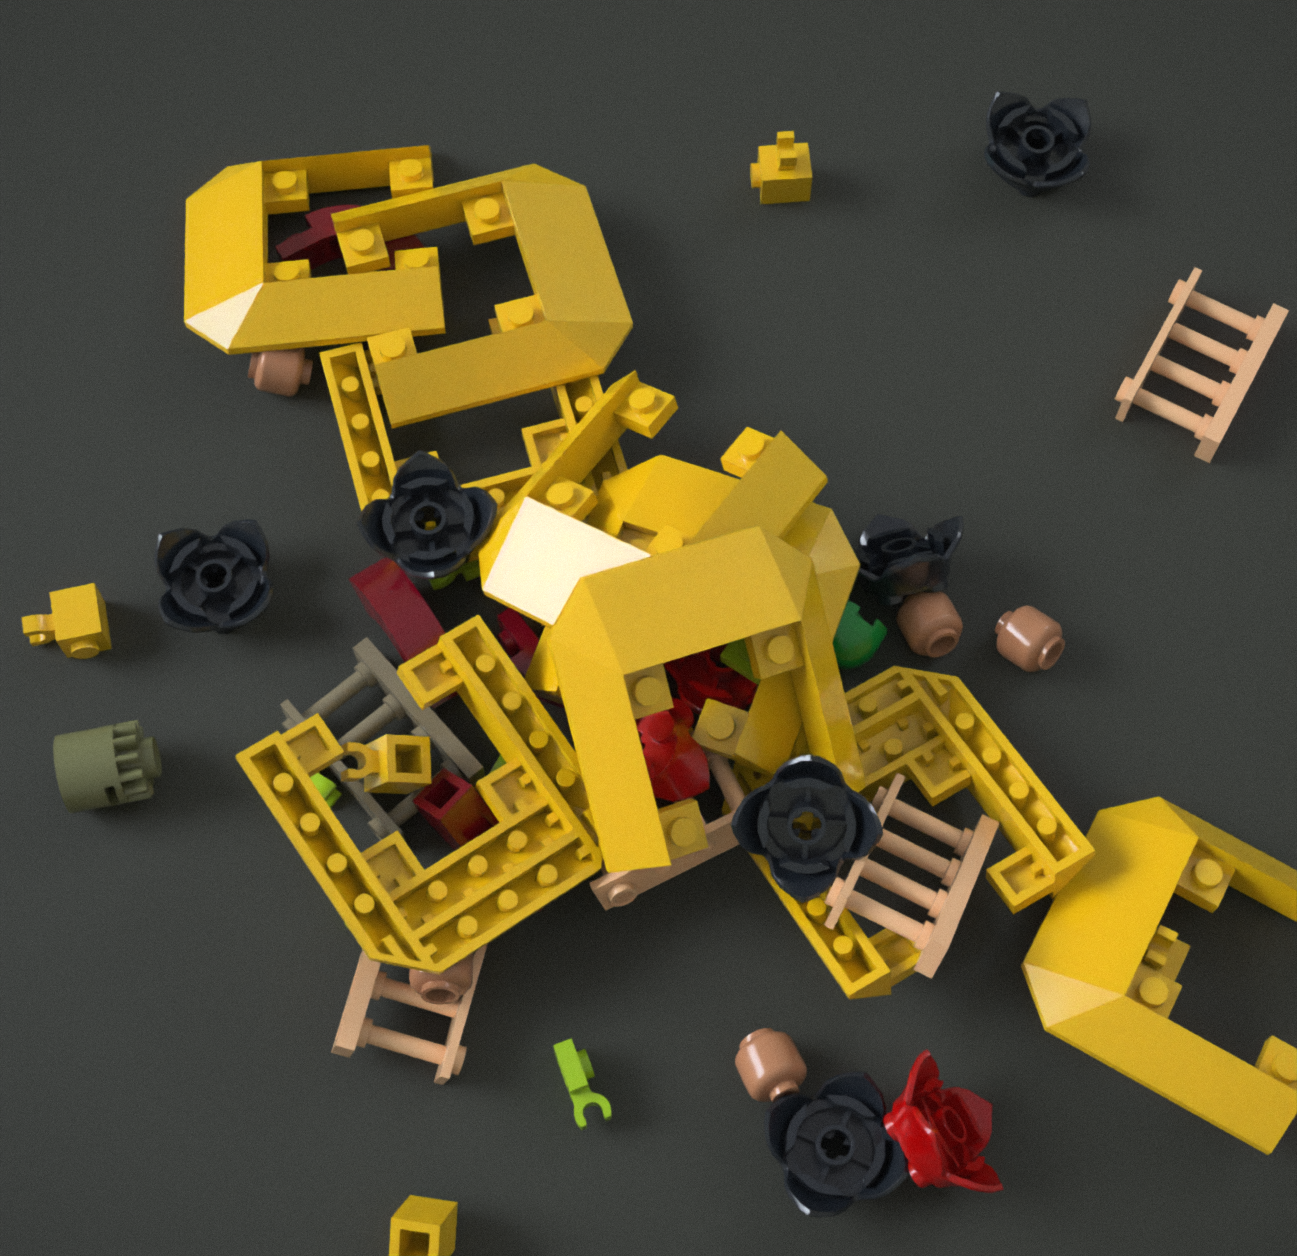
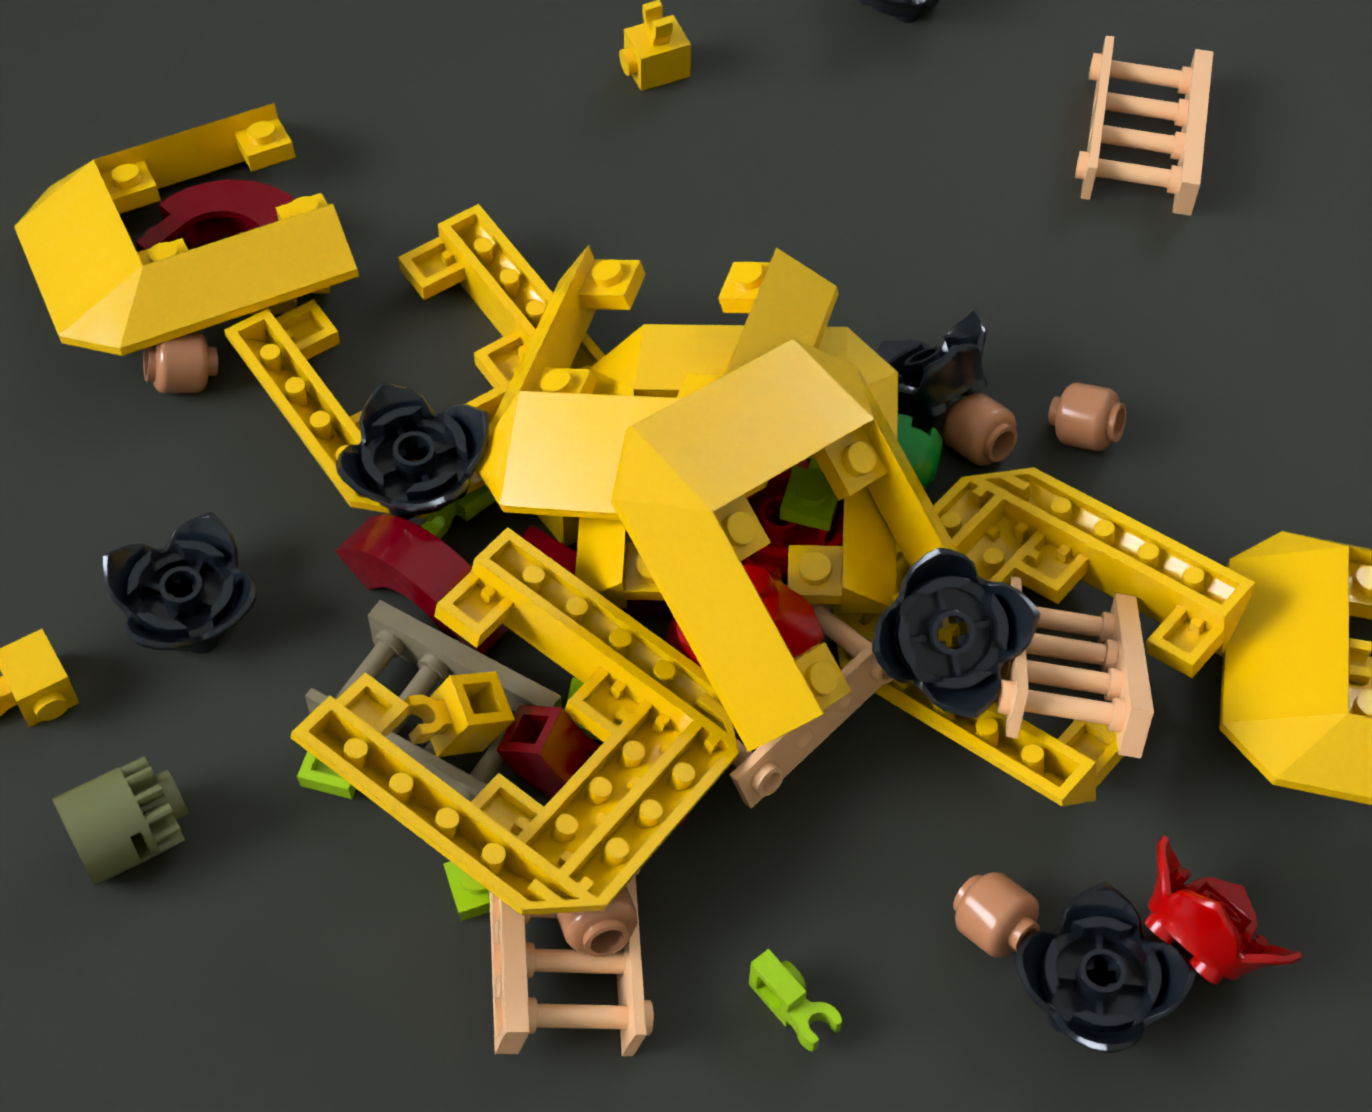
camera: 20 degrees left, 10 degrees down
(545, 339) = (481, 245): yellow slope -> none

